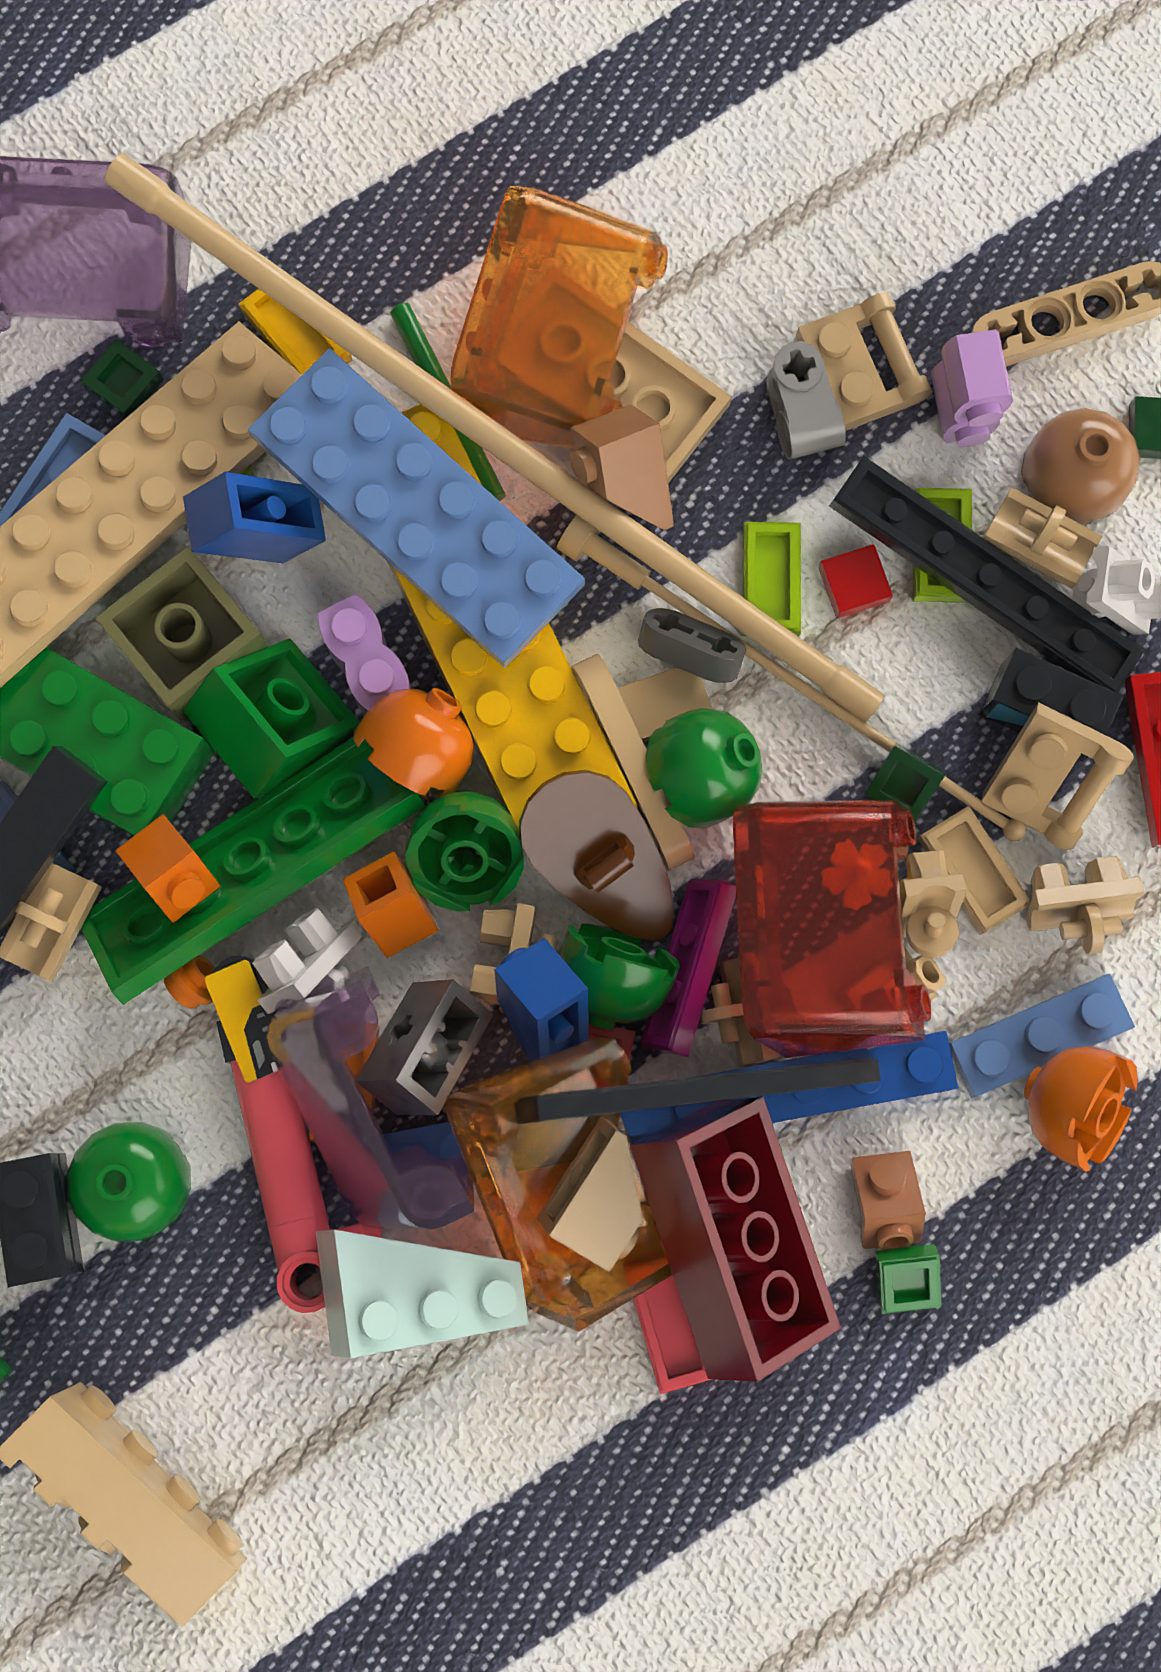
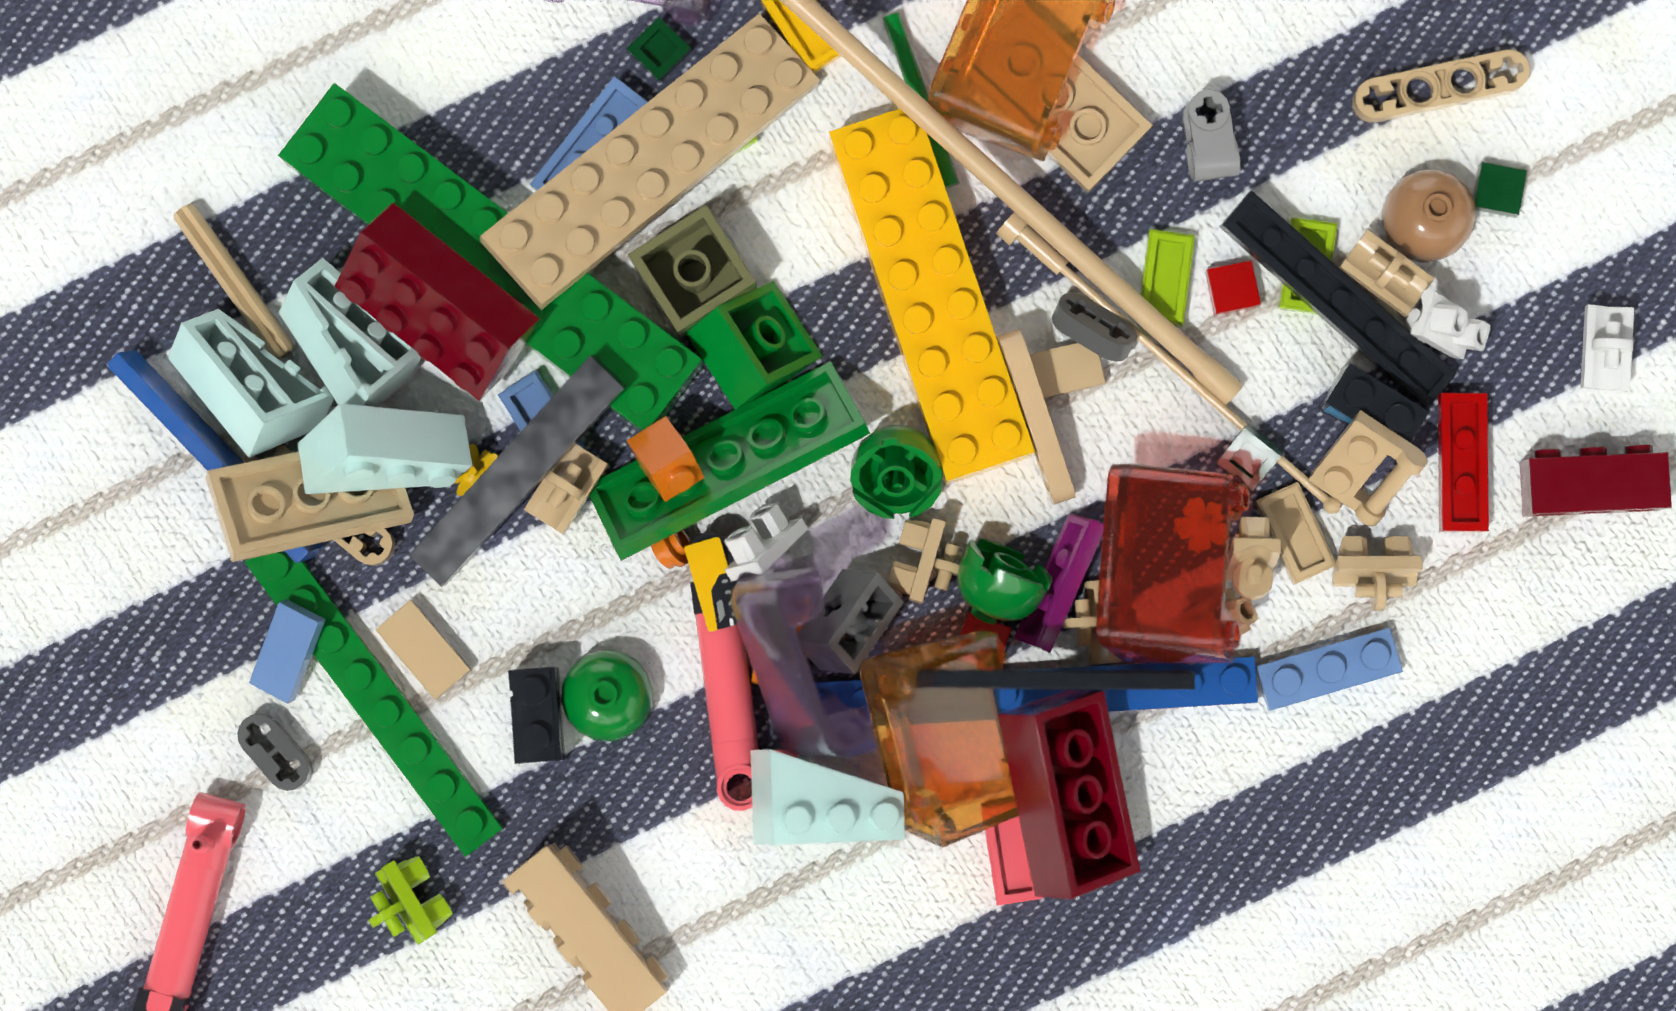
camera: 10 degrees right, 5 degrees up
(253, 518) = (759, 186): blue brick -> none
(361, 651) = (828, 298): lavender brick -> none
(390, 905) = (833, 507): orange brick -> none
(417, 507) = (889, 195): medium blue plate -> none
(418, 739) = (870, 380): orange cylinder -> none
(542, 1000) = (944, 597): blue slope -> none
(596, 1200) = (967, 752): tan slope -> none
(598, 852) = (1000, 487): shield -> none
(624, 463) = (1058, 177): medium nougat slope -> none
(704, 766) = (1091, 427): green cylinder -> none
(851, 368) = (1251, 107): tan plate -> none
(888, 1200) = (1191, 781): nougat bracket -> none
(908, 1278) = (1198, 842): green tile -> none
(971, 387) = (1345, 145): lavender brick -> none
(1078, 1103) = (1349, 725): orange cylinder -> none

